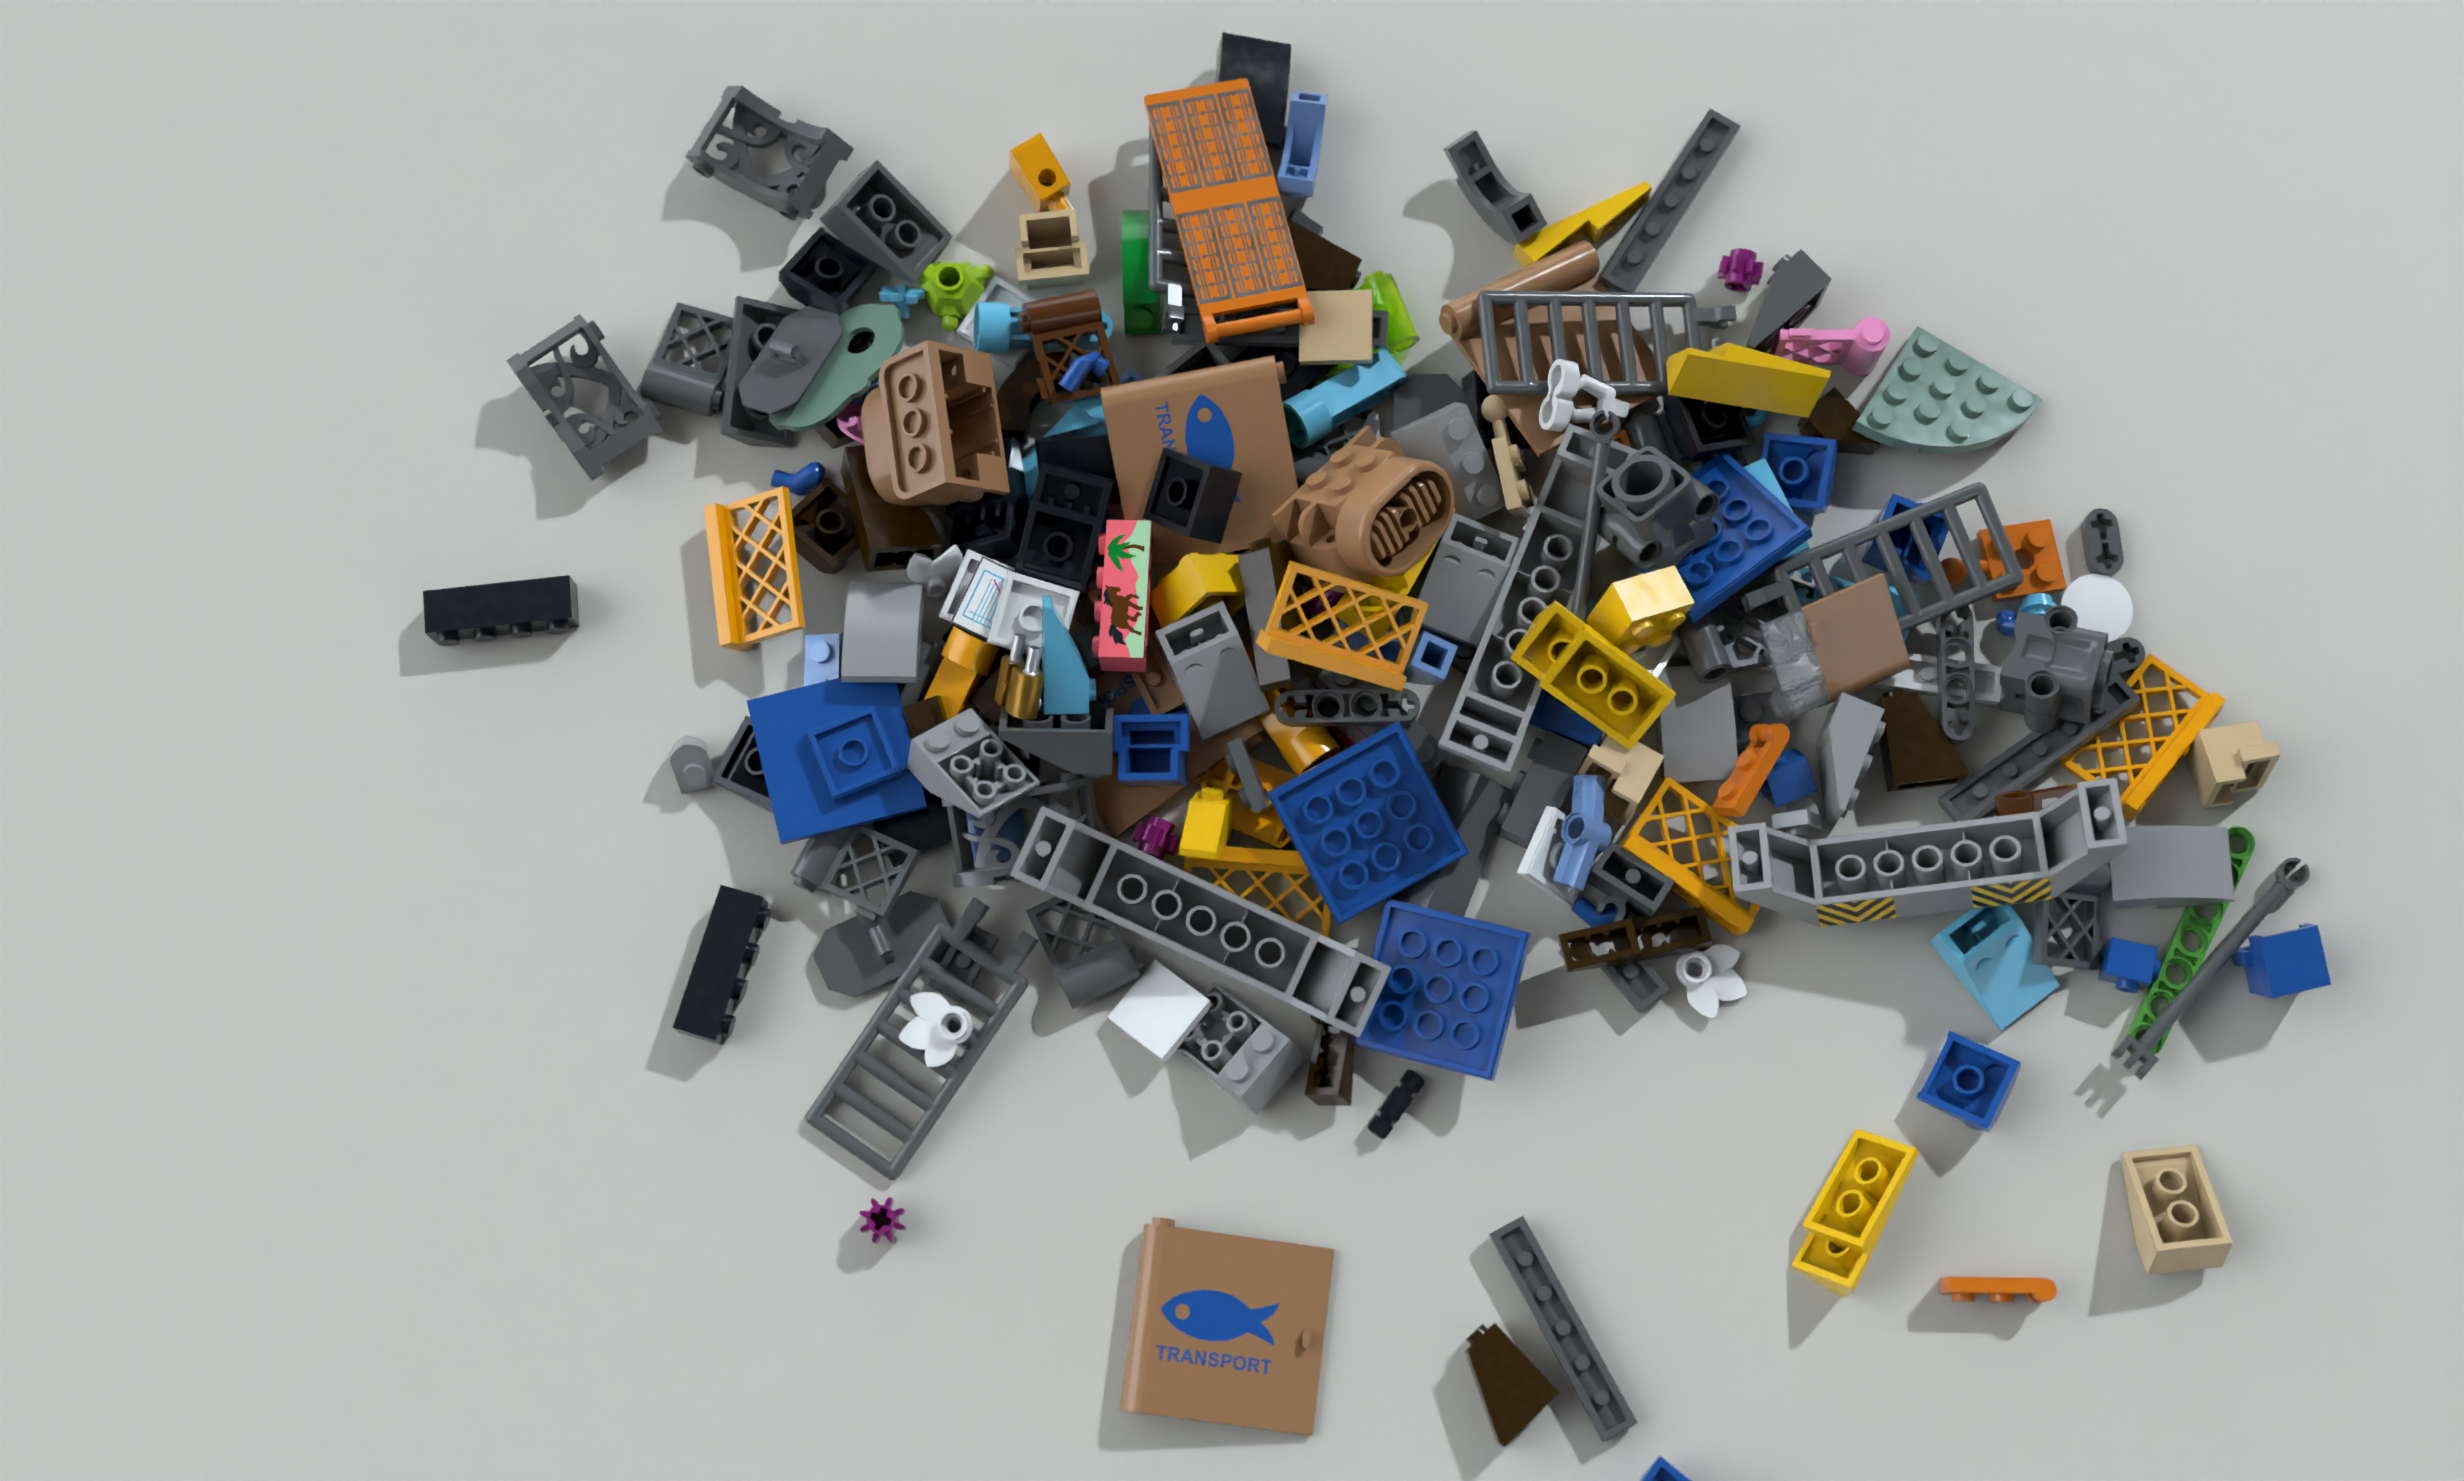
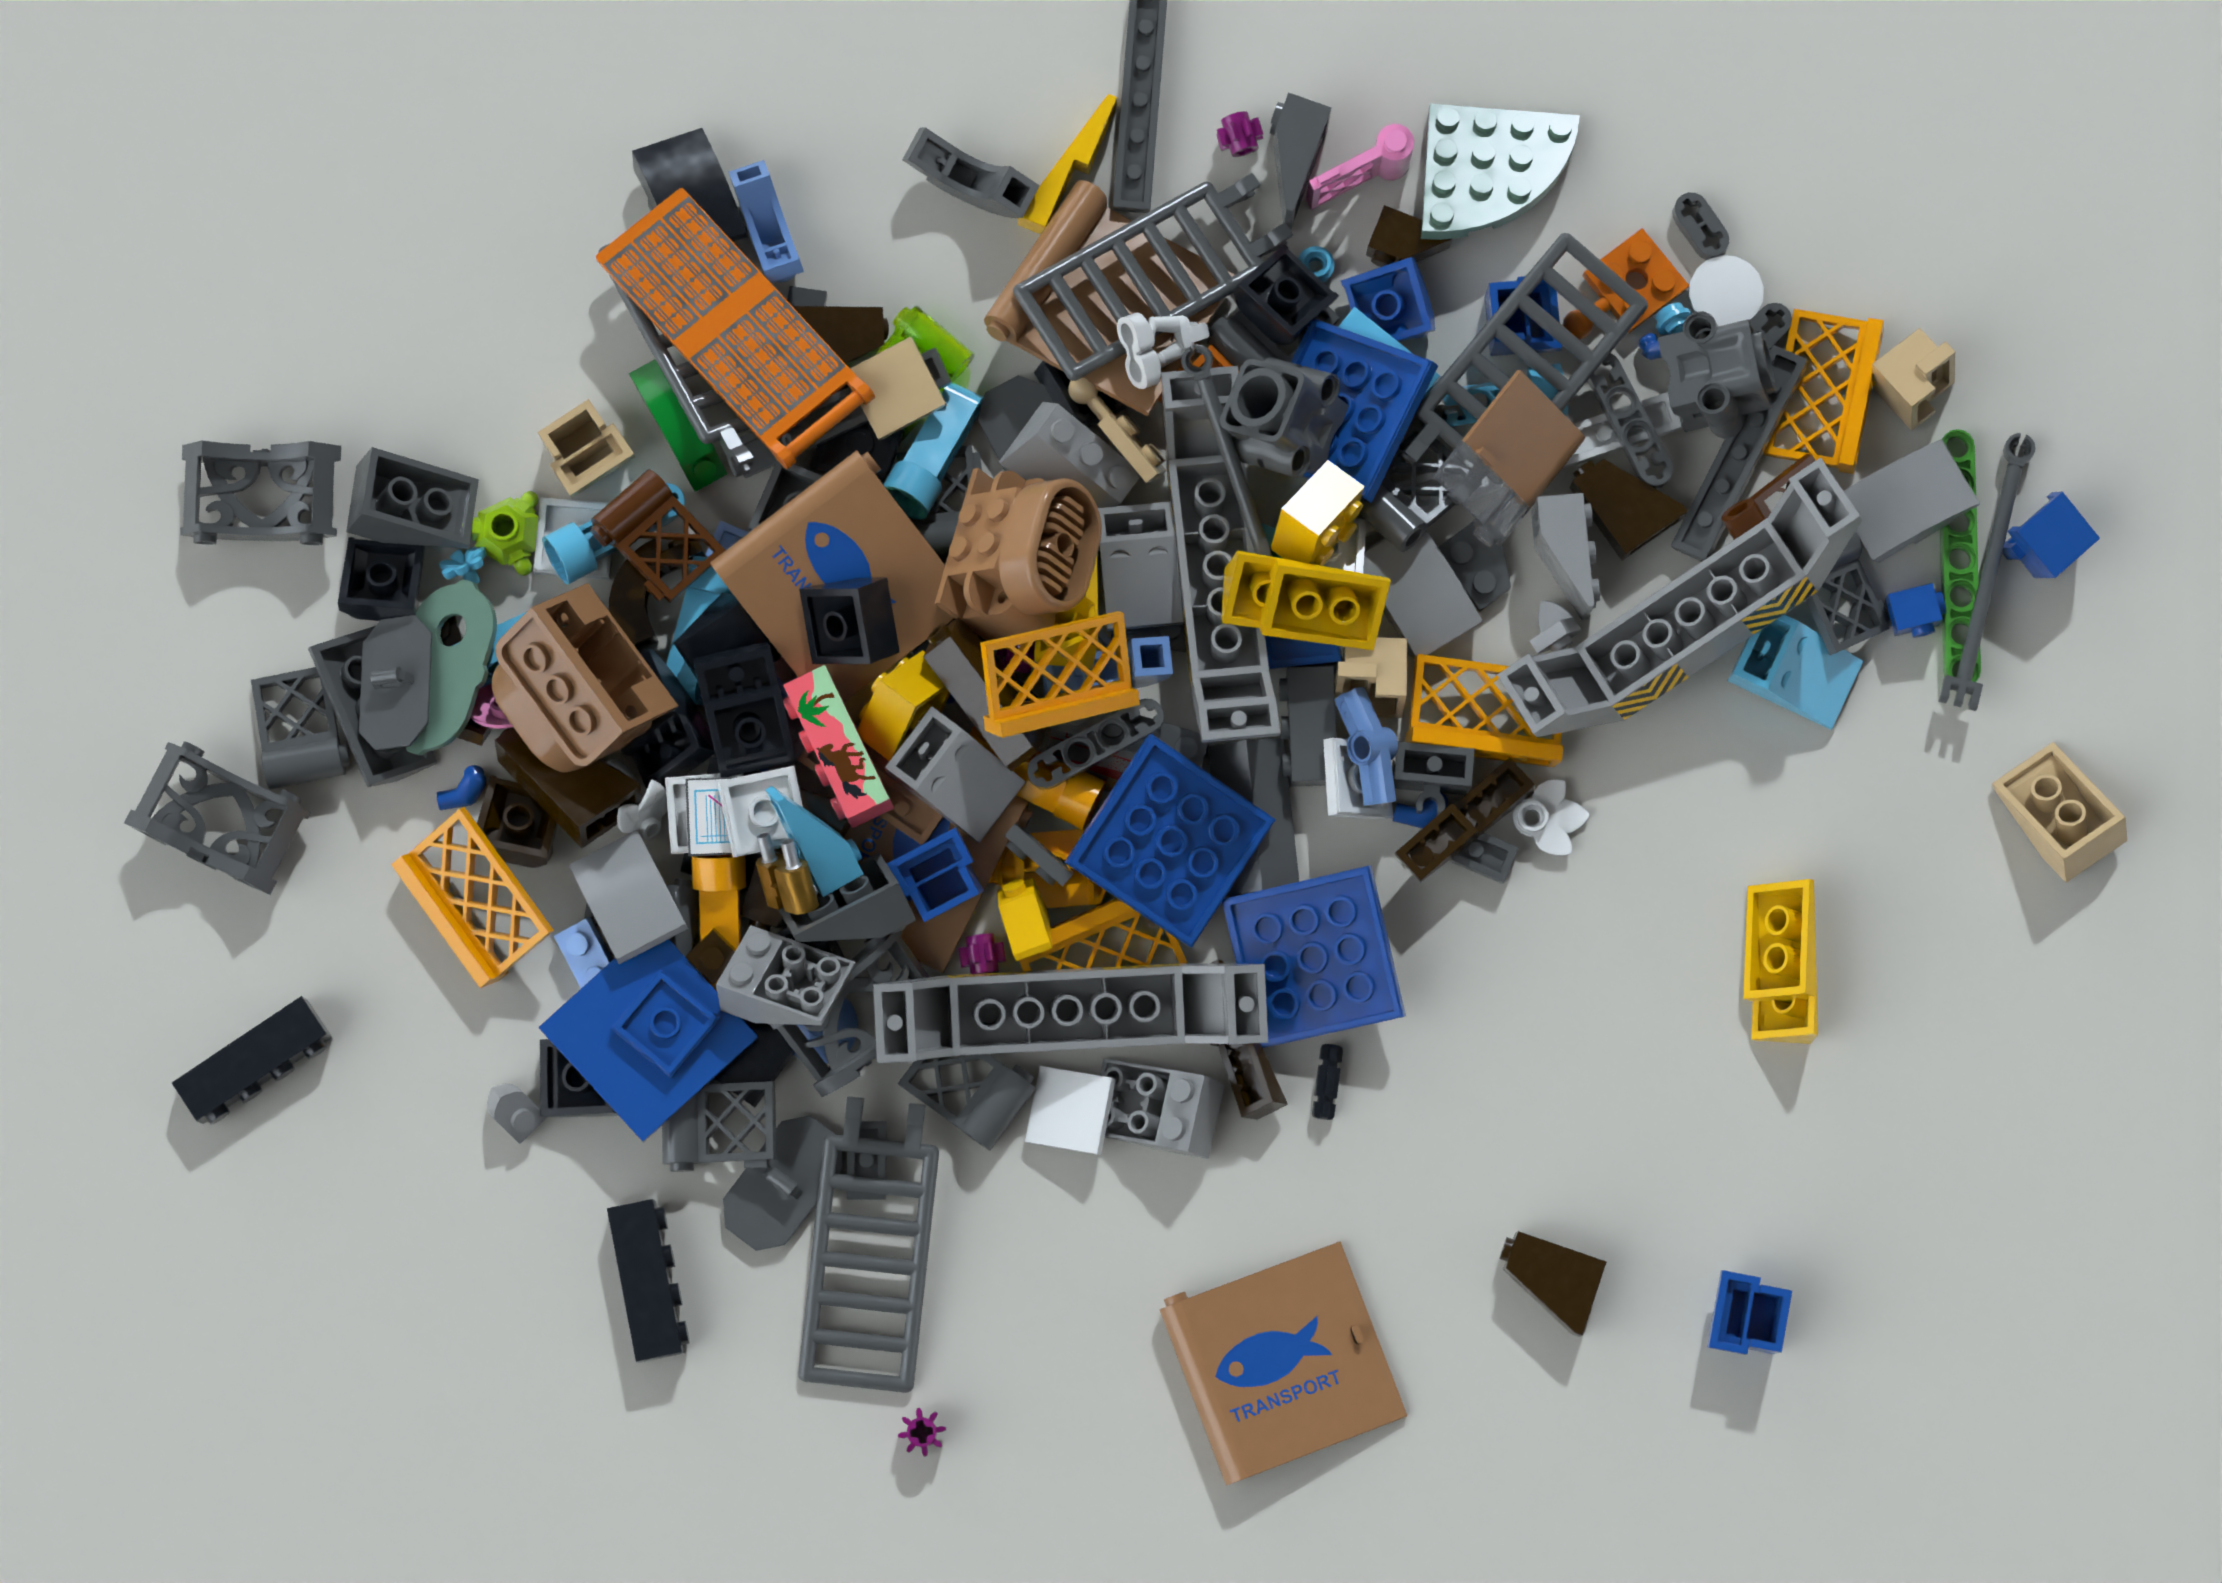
camera: 30 degrees left, 5 degrees up
(931, 1028) = (872, 1237): white plate -> none
(1036, 165) = (522, 372): light orange torso -> none
(1080, 367) = (680, 552): blue arm -> none
(1563, 1329) = (1579, 1203): dark grey plate -> none
(1746, 379) = (1300, 246): yellow slope -> none
(1751, 769) = (1491, 608): orange plate -> none
(1788, 779) = (1523, 599): blue brick -> none
(1970, 1082) = (1827, 792): blue slope -> none
(1999, 1288) = (1943, 963): orange plate -> none

